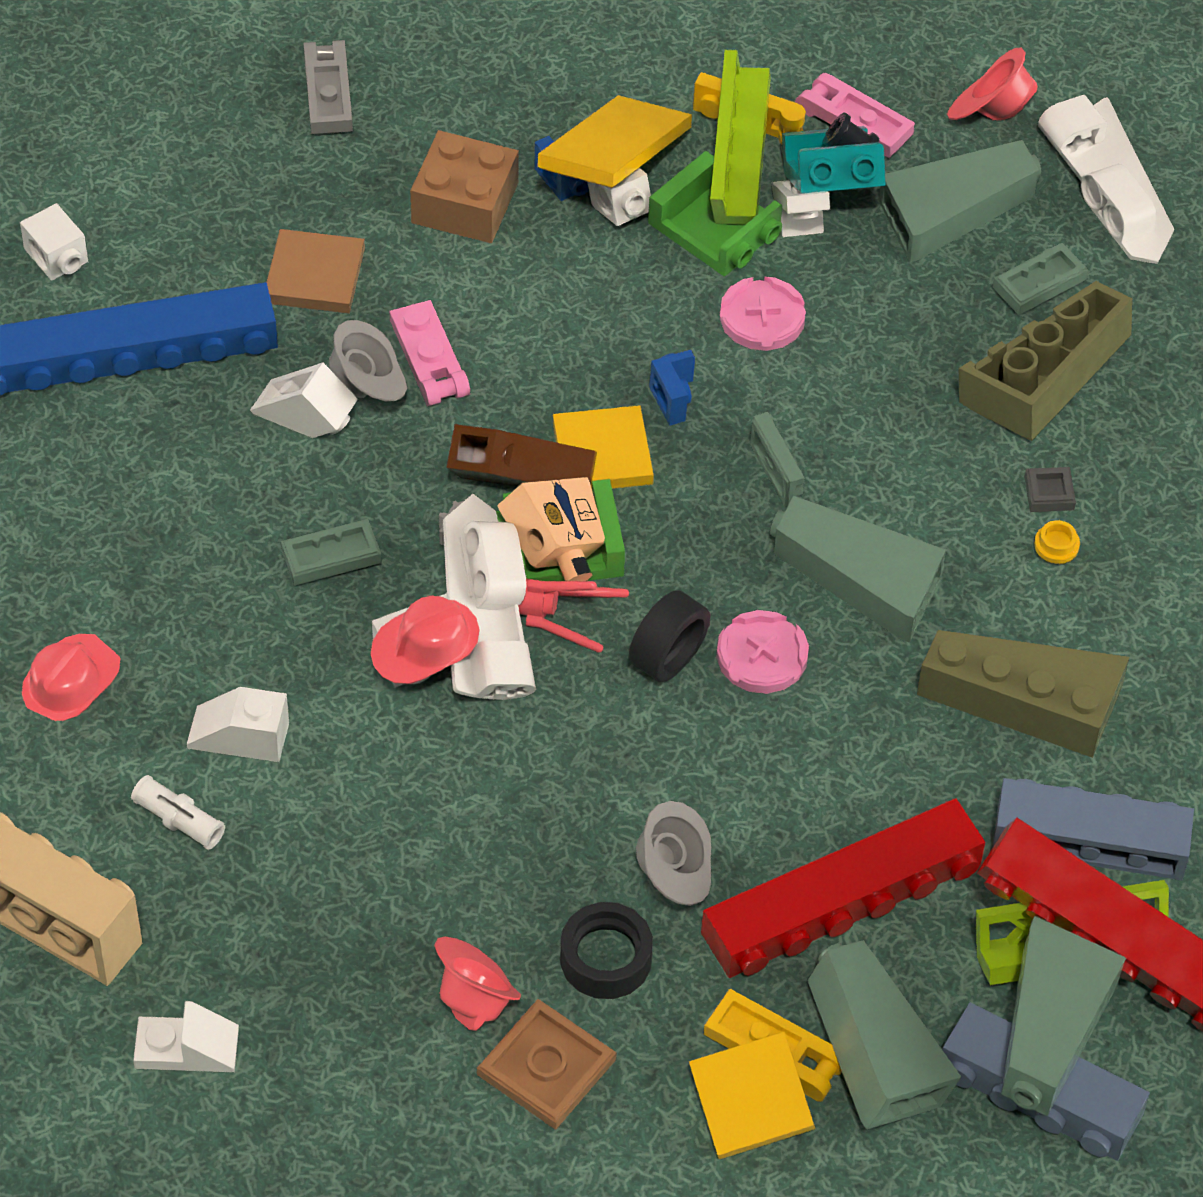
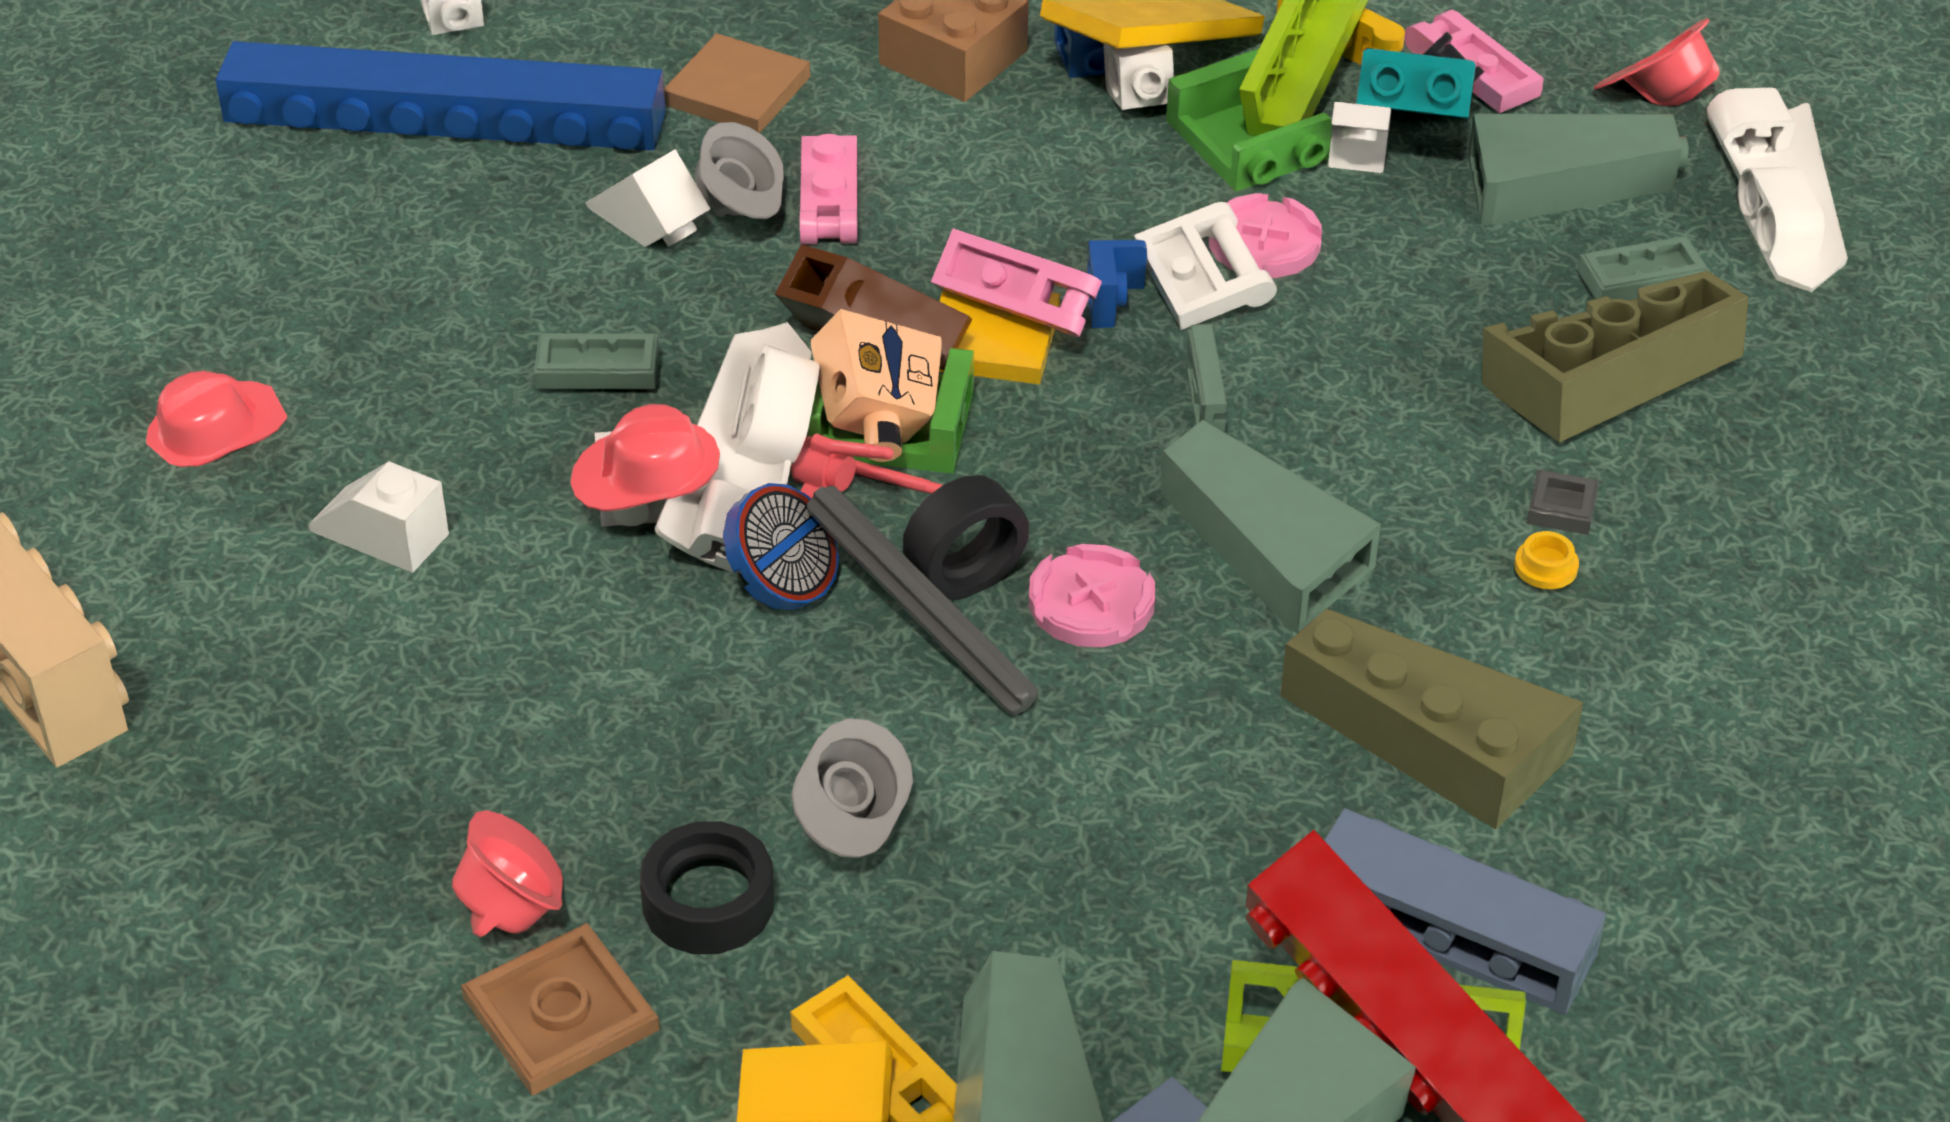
camera: 20 degrees right, 10 degrees down
(178, 812) = (266, 612): white pin -> none
(188, 1043) = (110, 852): white slope -> none
(543, 676) = (780, 547): none -> tile
(611, 410) = (1014, 281): none -> bright pink plate
(656, 692) = (923, 601): none -> dark grey axle
(726, 365) = (1189, 274): none -> white plate
(842, 889) = (1057, 893): red brick -> none

